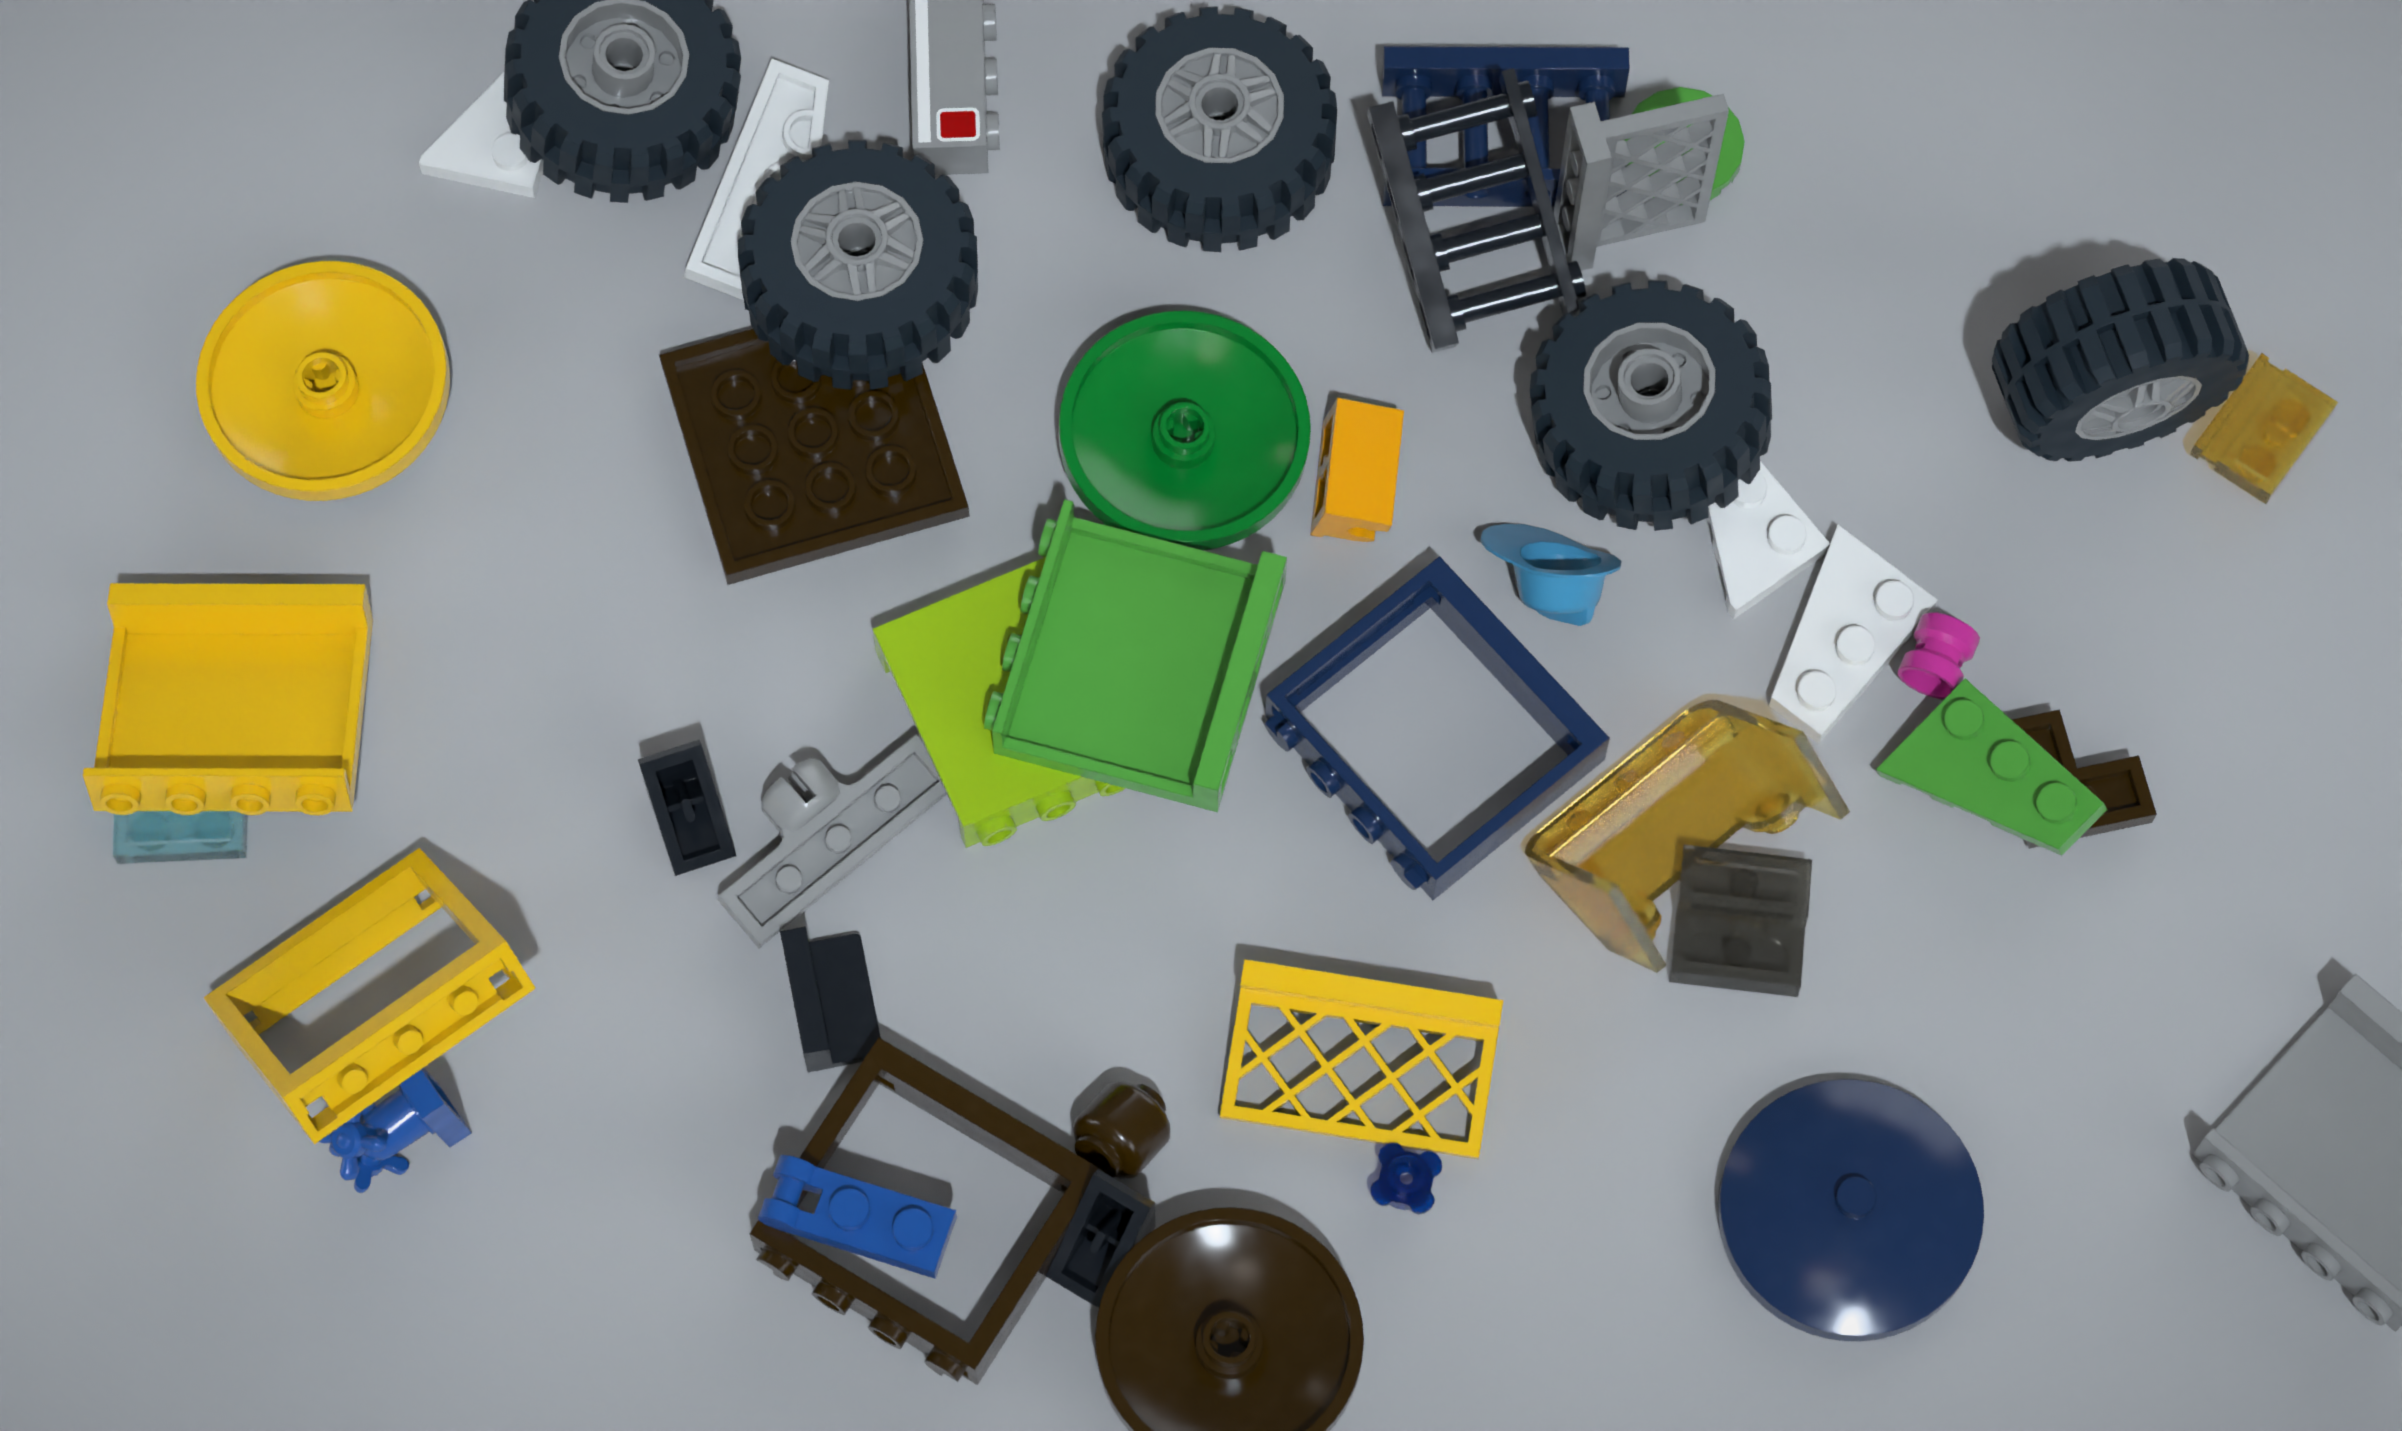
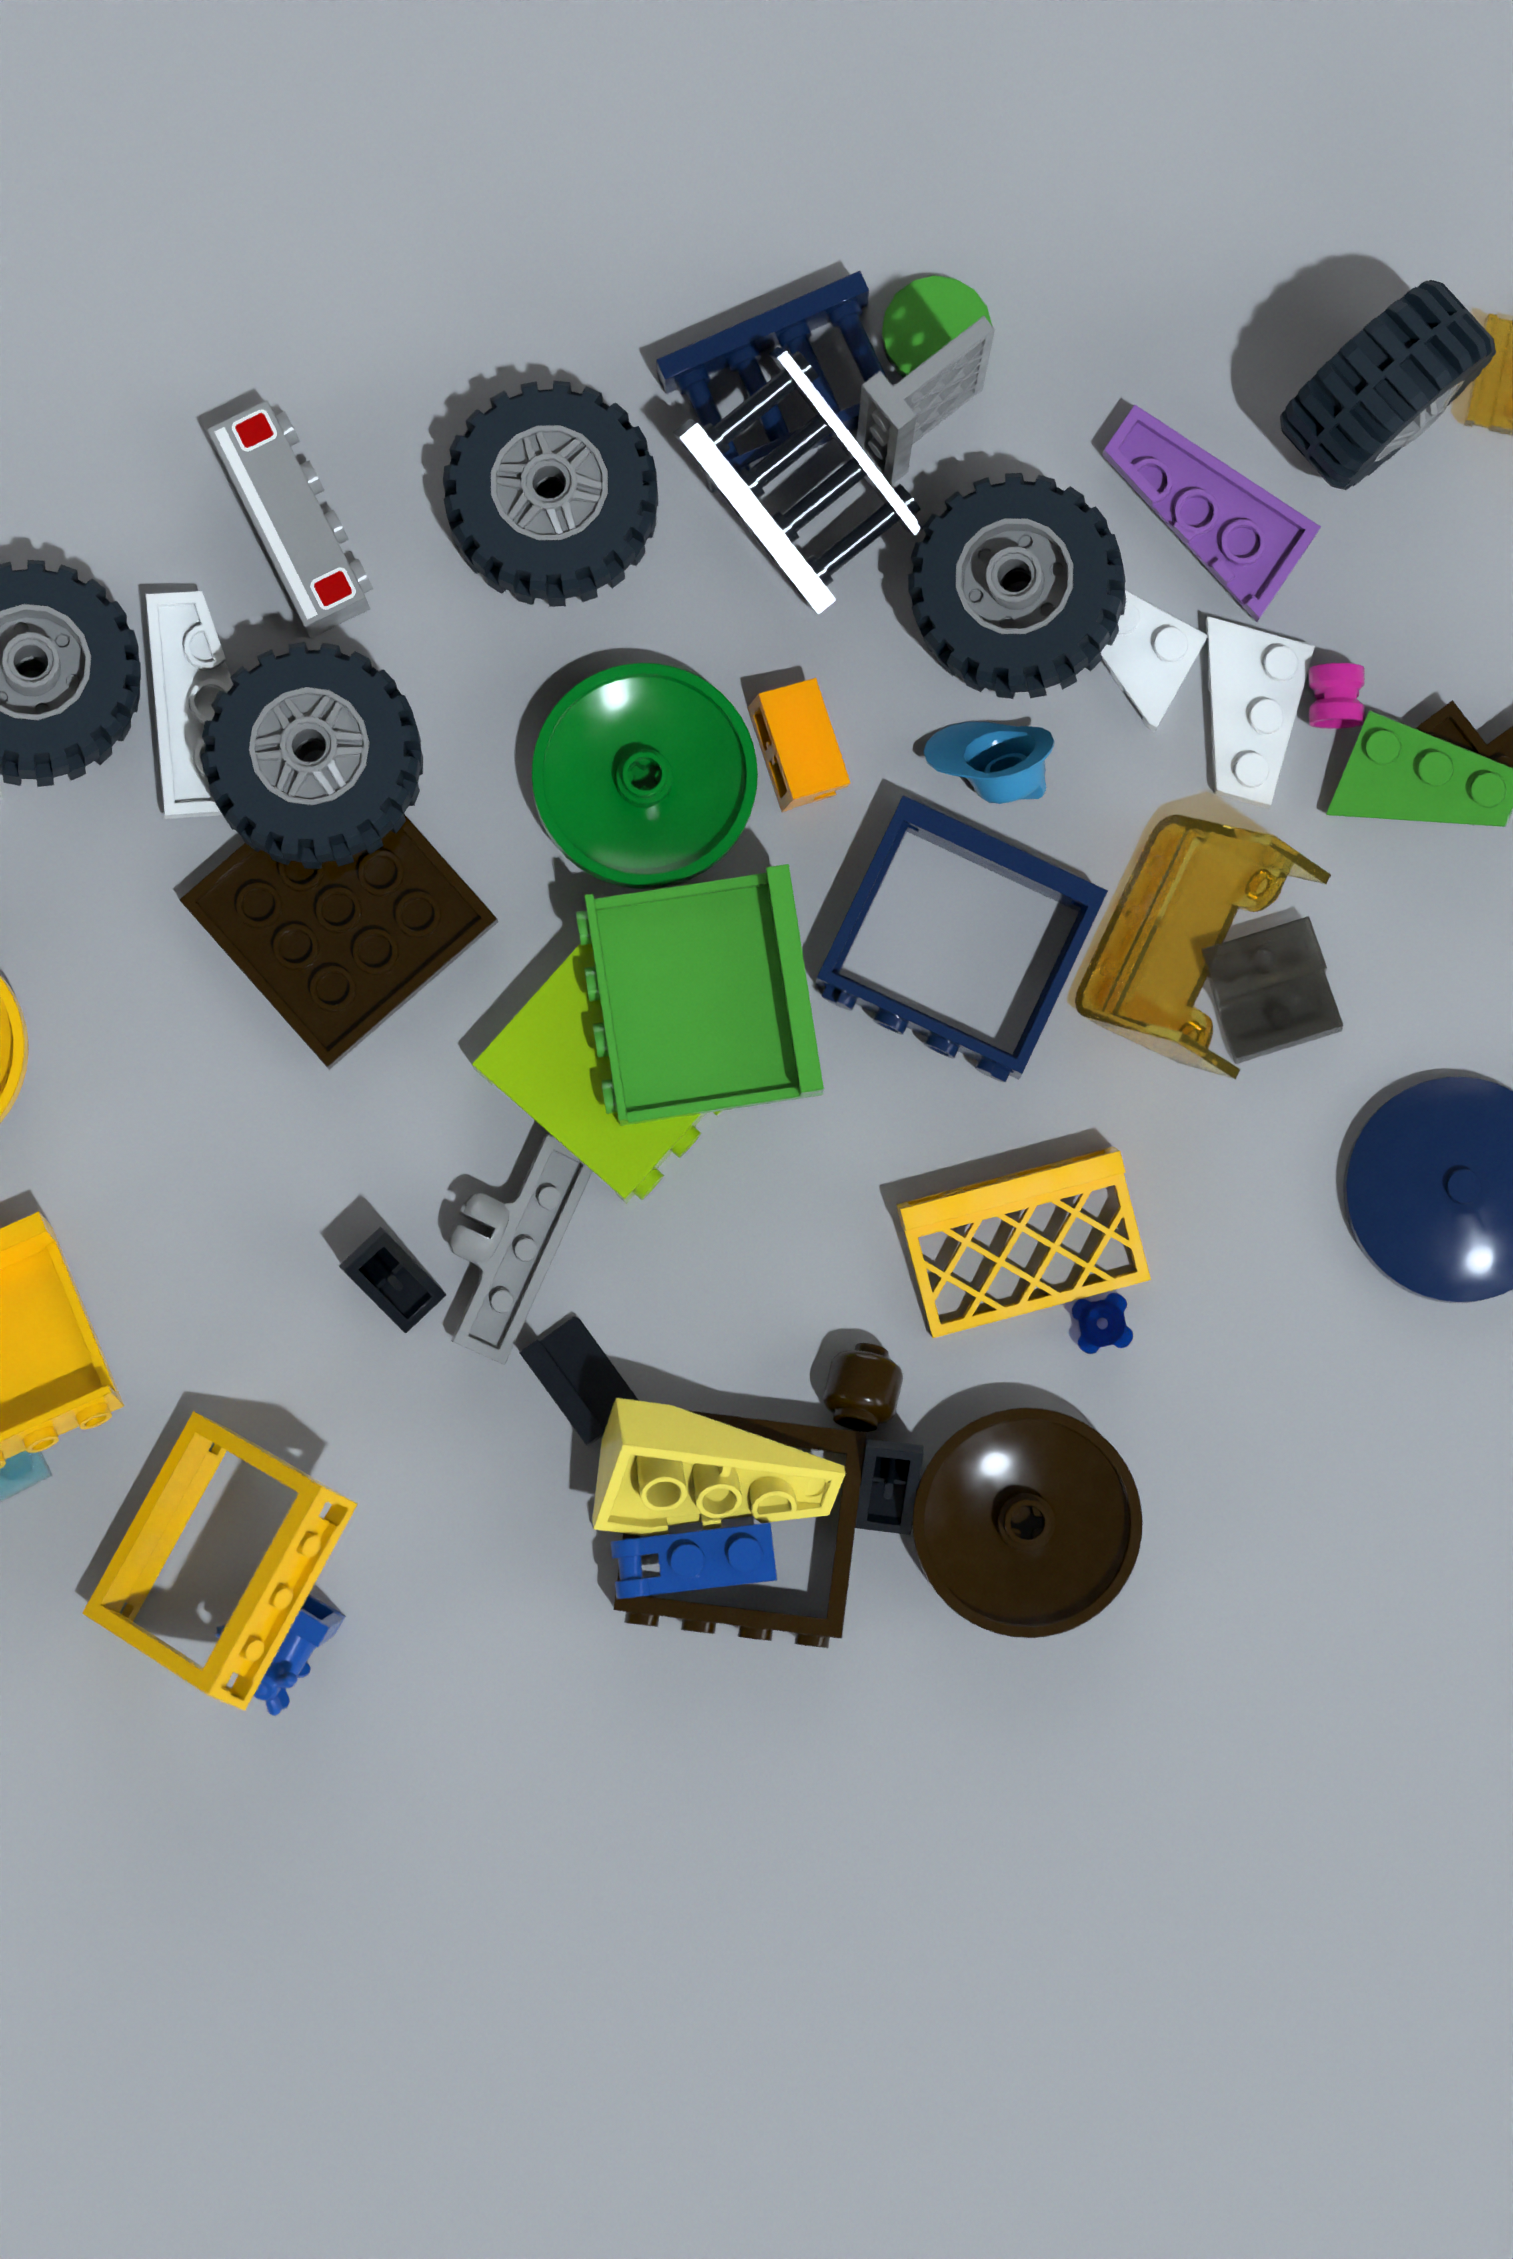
camera: 25 degrees left, 15 degrees up
(898, 1120) = (684, 1468): none -> light yellow wedge
(1895, 433) = (1218, 513): none -> medium lavender wing

